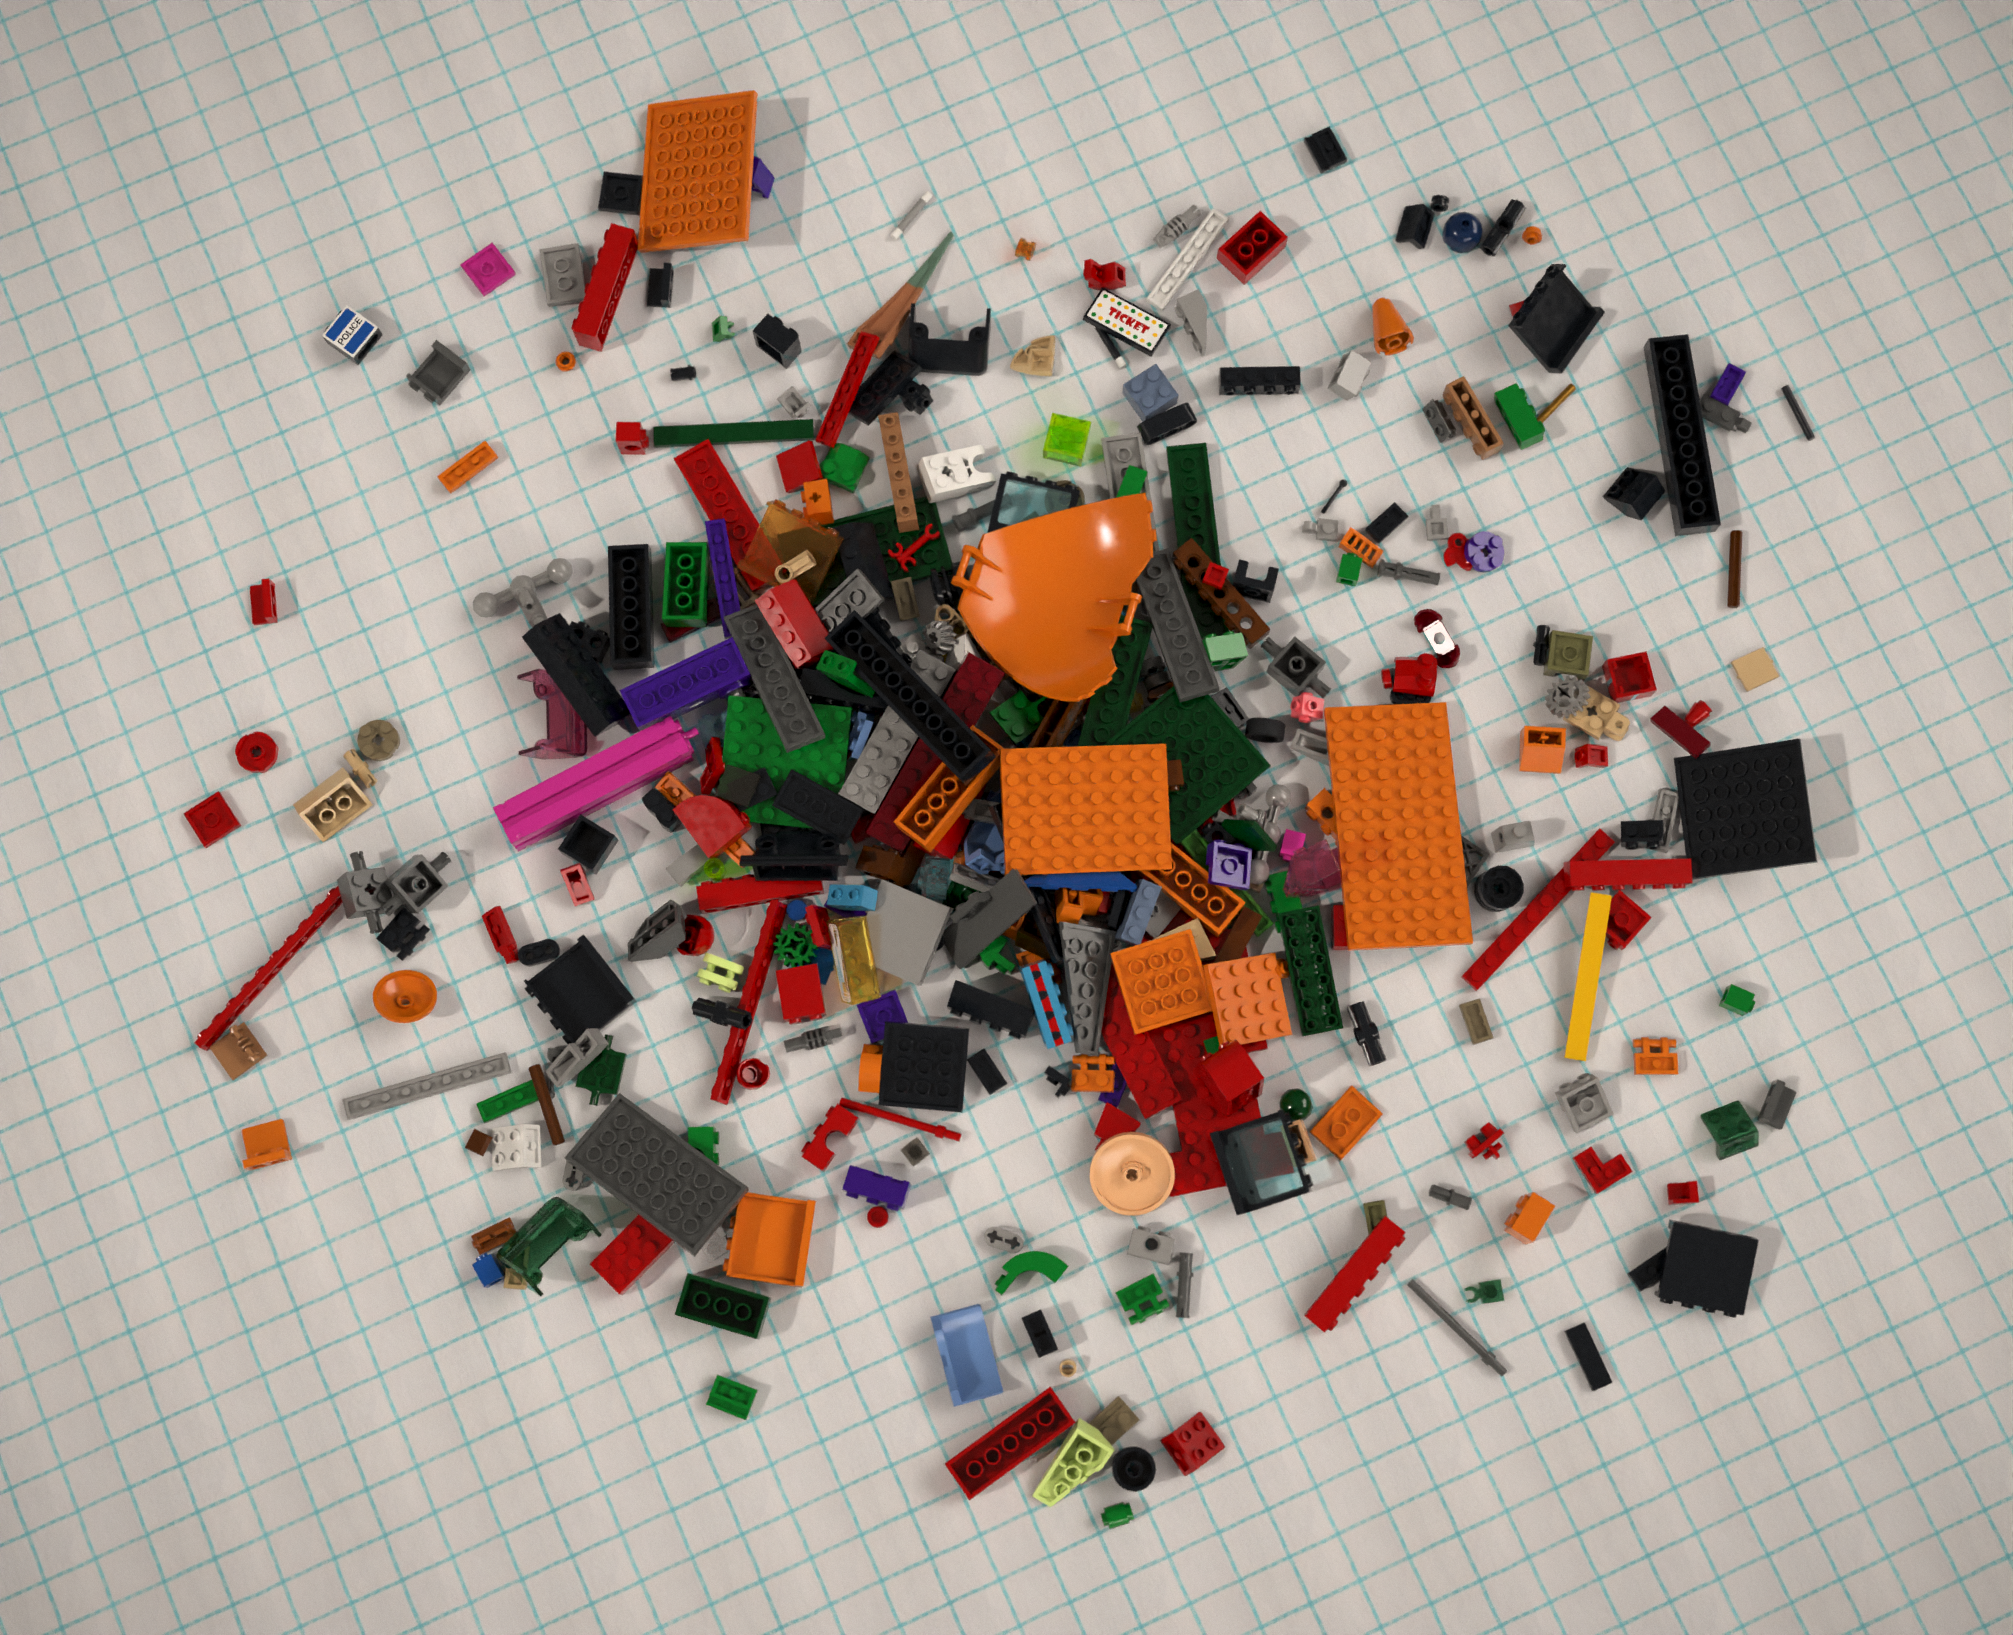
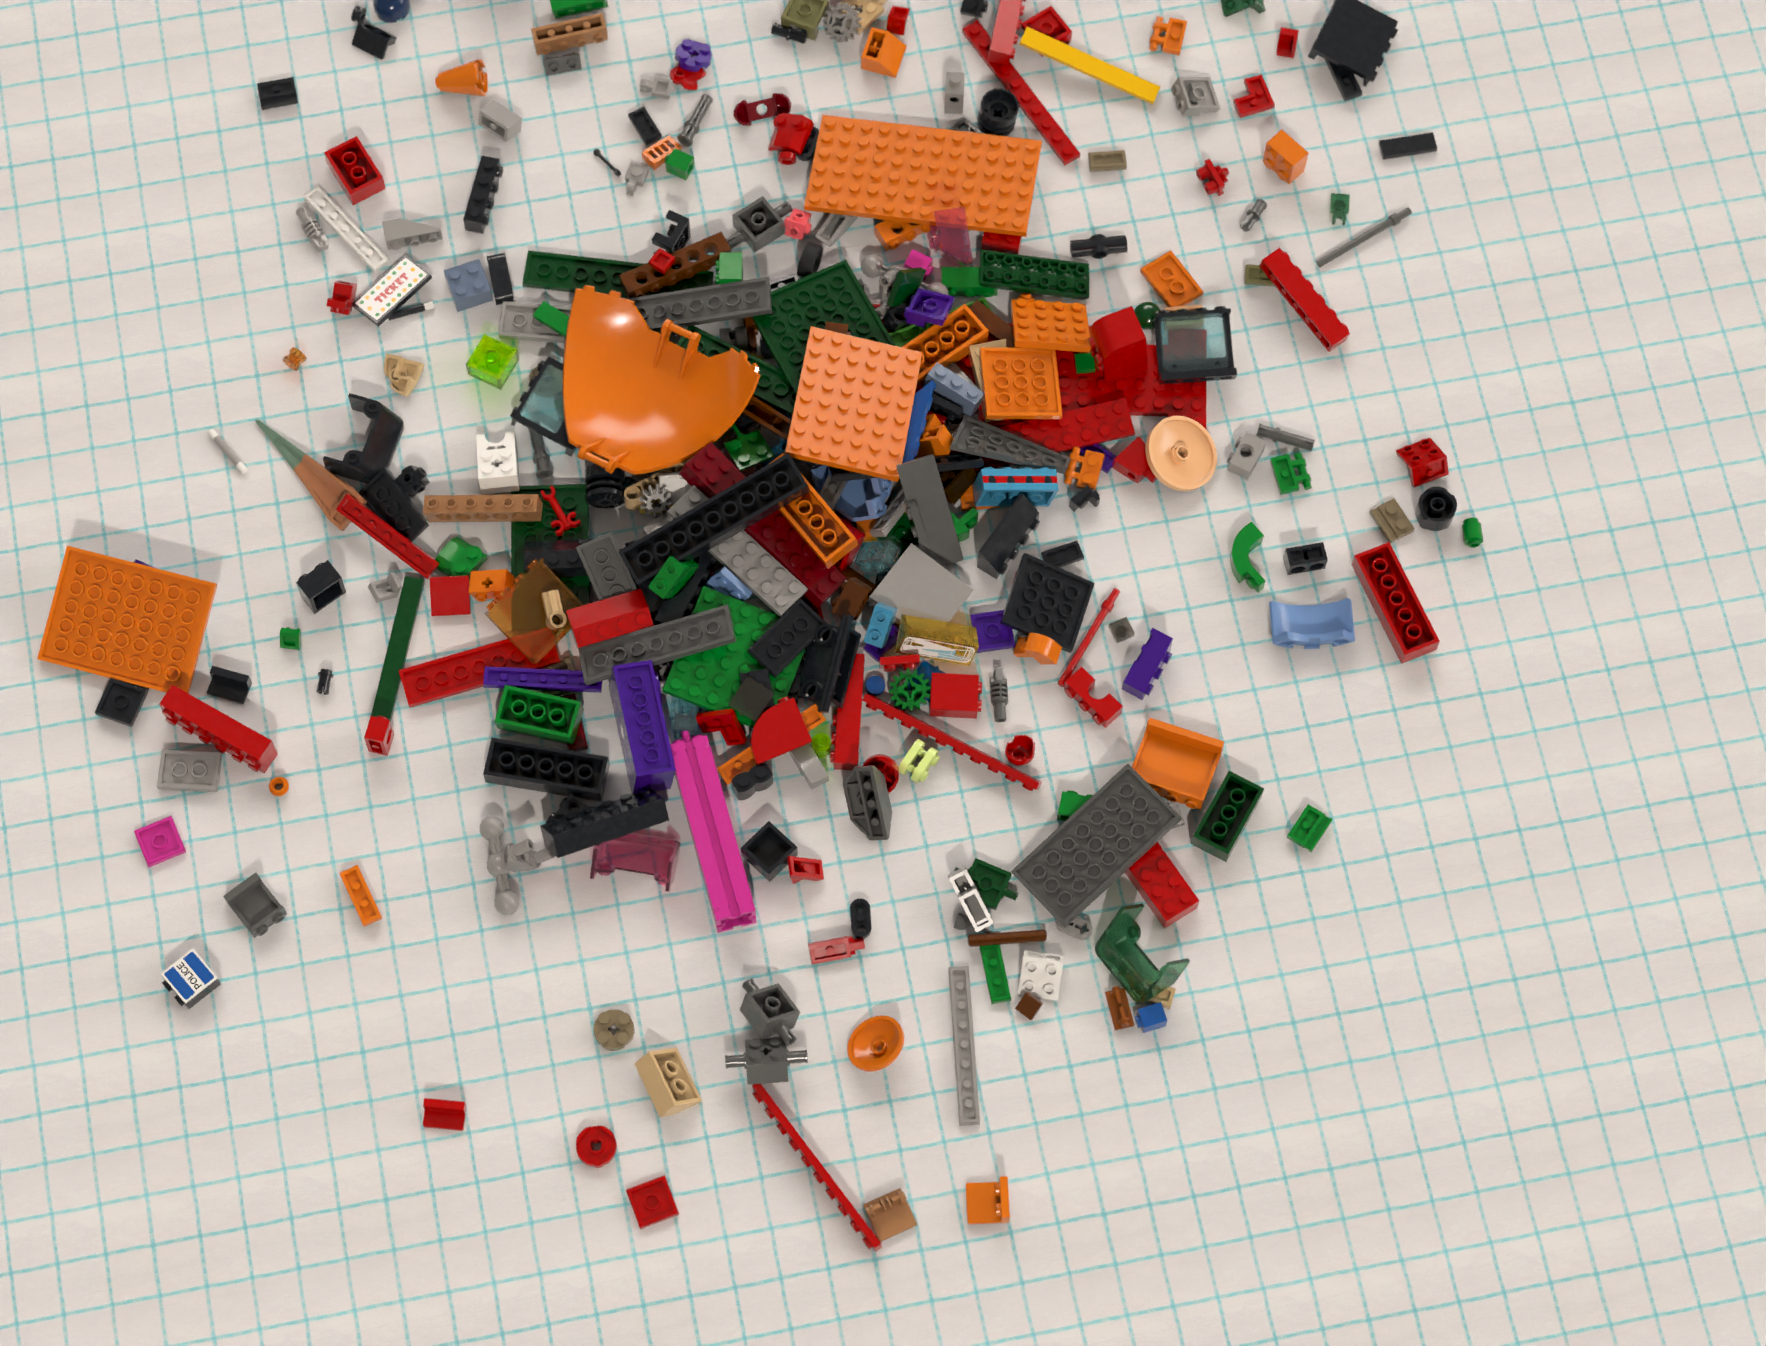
camera: 80 degrees left, 10 degrees down
(360, 768) = (638, 1050): tan pin -> none
(398, 931) = (806, 1040): black plate -> none
(579, 991) = (906, 888): black panel -> none
(722, 1013) = (959, 762): black piece -> none
(877, 1217) = (1172, 674): red tile -> none
(905, 598) = (597, 528): dark tan plate -> none
(1005, 1235) = (1211, 572): light grey beam -> none
(1067, 1372) = (1341, 546): tan hinge -> none
(1078, 1457) = (1419, 554): yellowish green wedge -> none

